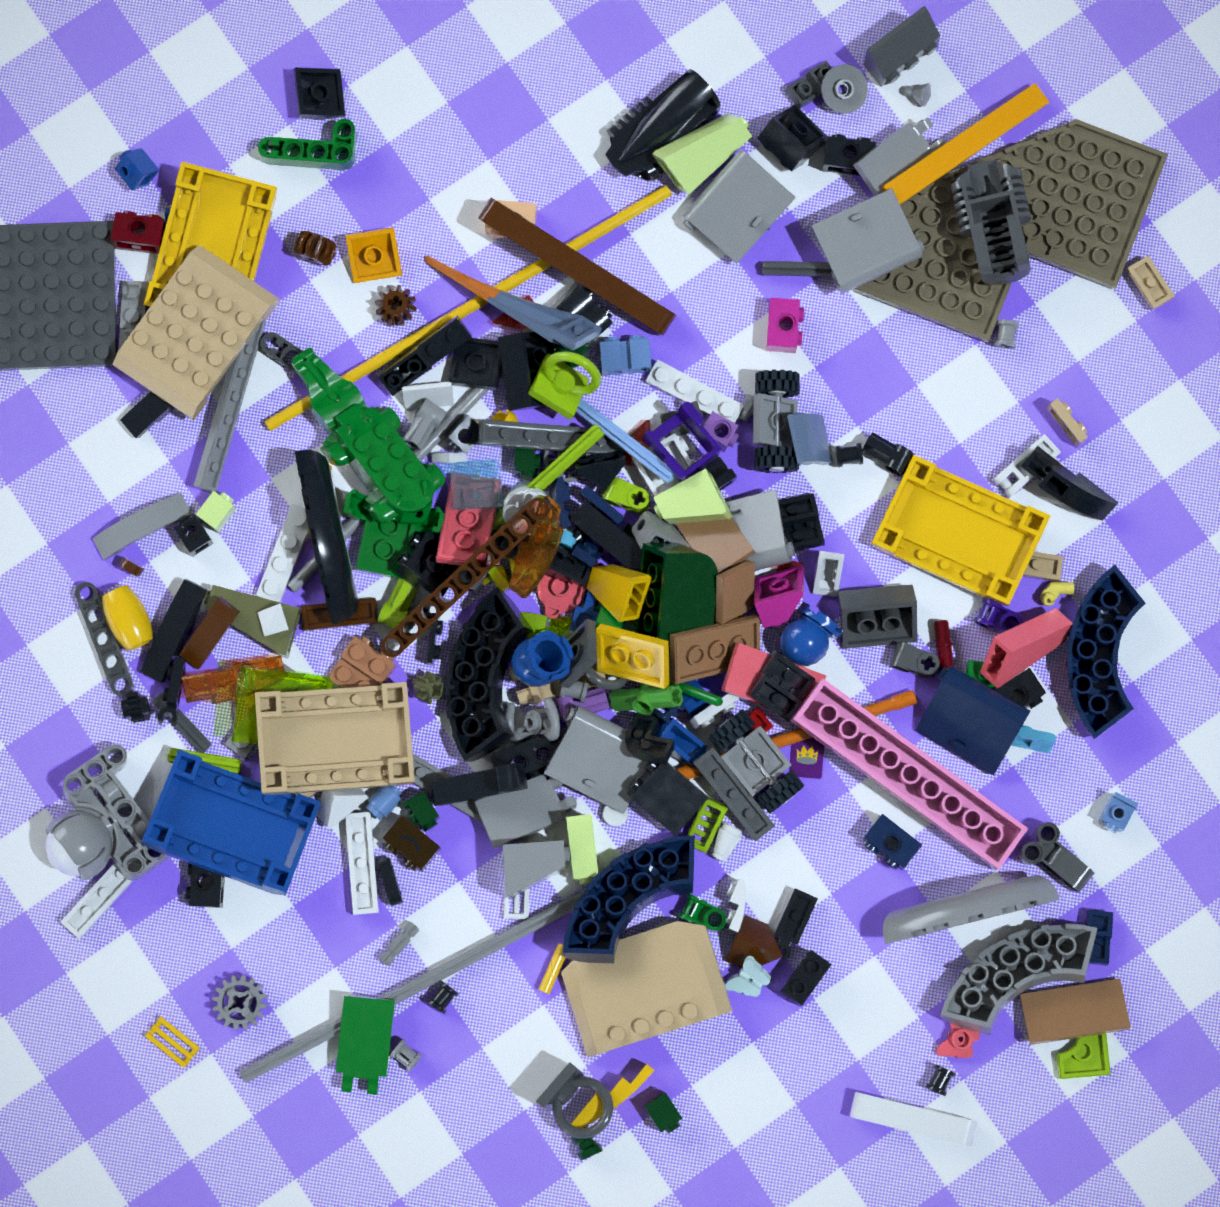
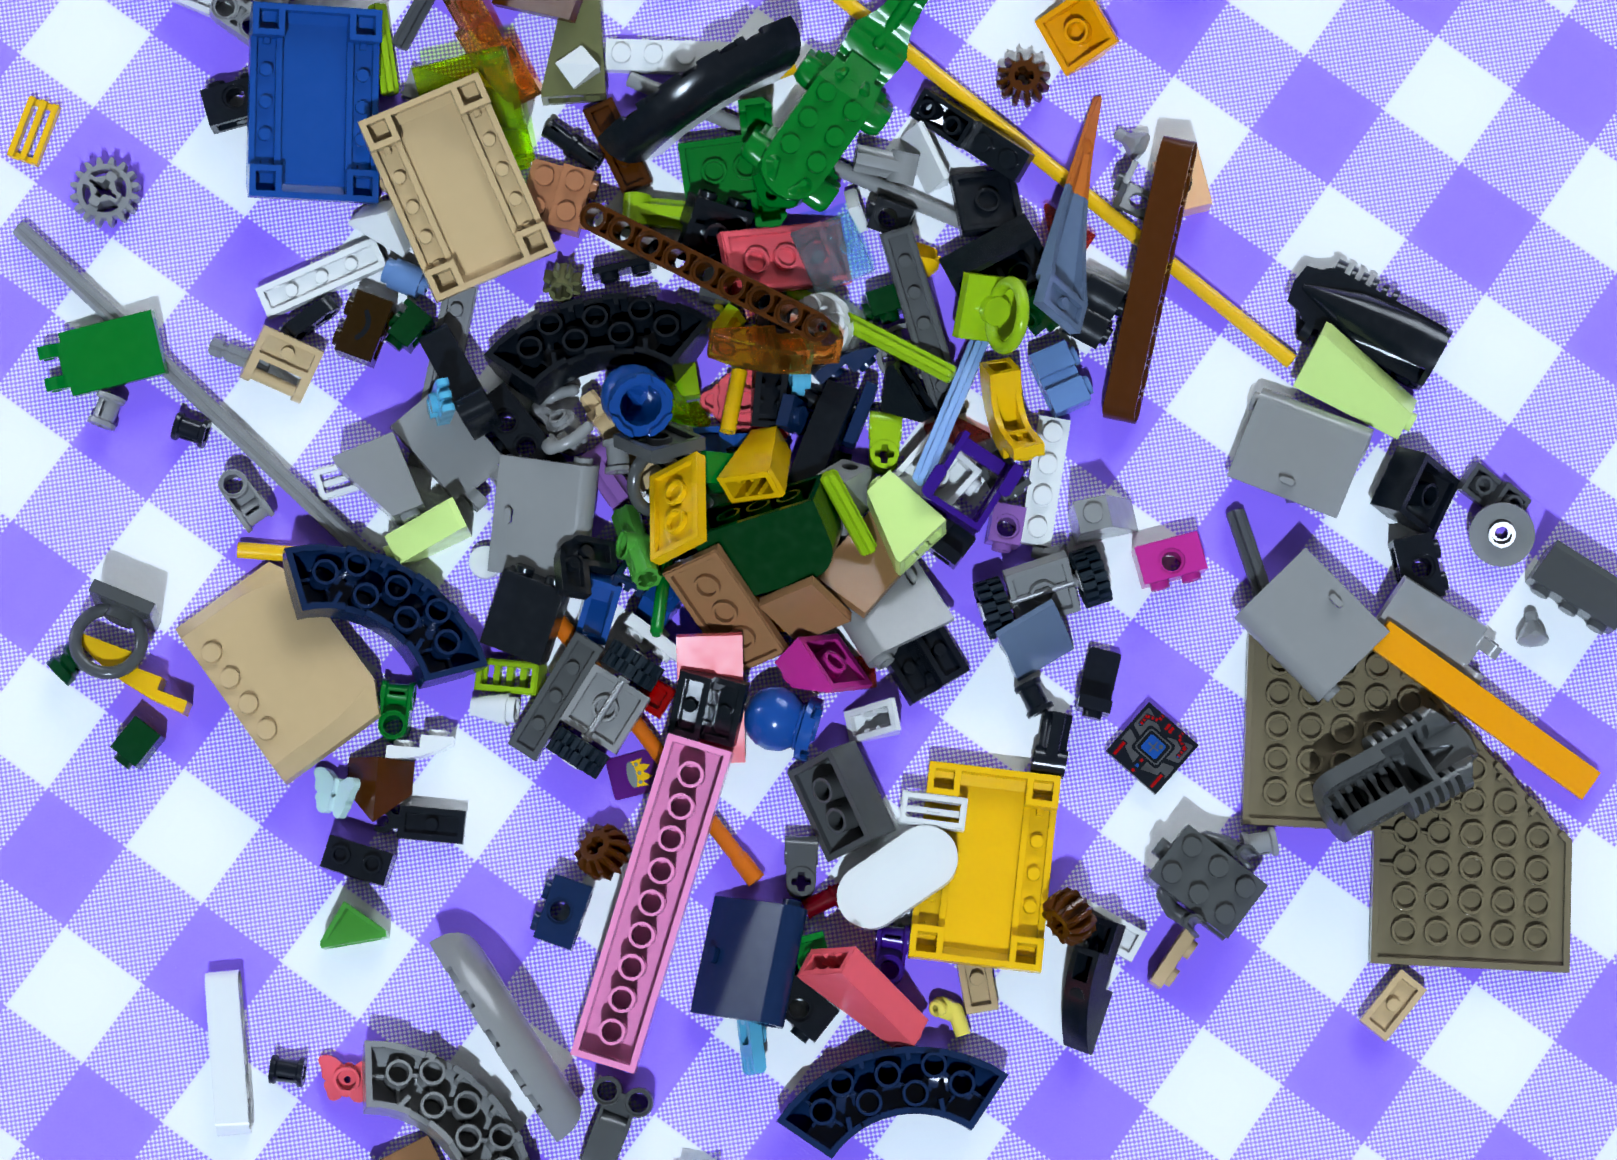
camera: 65 degrees right, 0 degrees up
(328, 646) = (573, 145): none -> black pin
(411, 907) = (286, 354): none -> tan plate
(470, 244) = (1133, 143): none -> light grey rock
(493, 802) = (440, 402): none -> medium azure hinge
(500, 260) = (1127, 190): none -> dark grey bracket
(510, 973) = (247, 503): none -> light grey piece
(561, 593) = (733, 401): none -> yellow piece
(638, 403) = (1006, 411): none -> yellow arch
(676, 535) = (848, 512): none -> lime axle
(738, 363) = (1101, 518): none -> light grey slope
(853, 998) = (351, 928): none -> bright green slope
(855, 406) = (1098, 684): none -> black bracket
(858, 798) = (603, 852): none -> reddish brown gear
(899, 572) = (935, 798): none -> white tile
(912, 385) = (1151, 748): none -> tile
(948, 593) = (897, 877): none -> white tile
(1018, 482) = (1069, 916): none -> reddish brown gear
(1023, 381) = (1203, 883): none -> dark grey torso

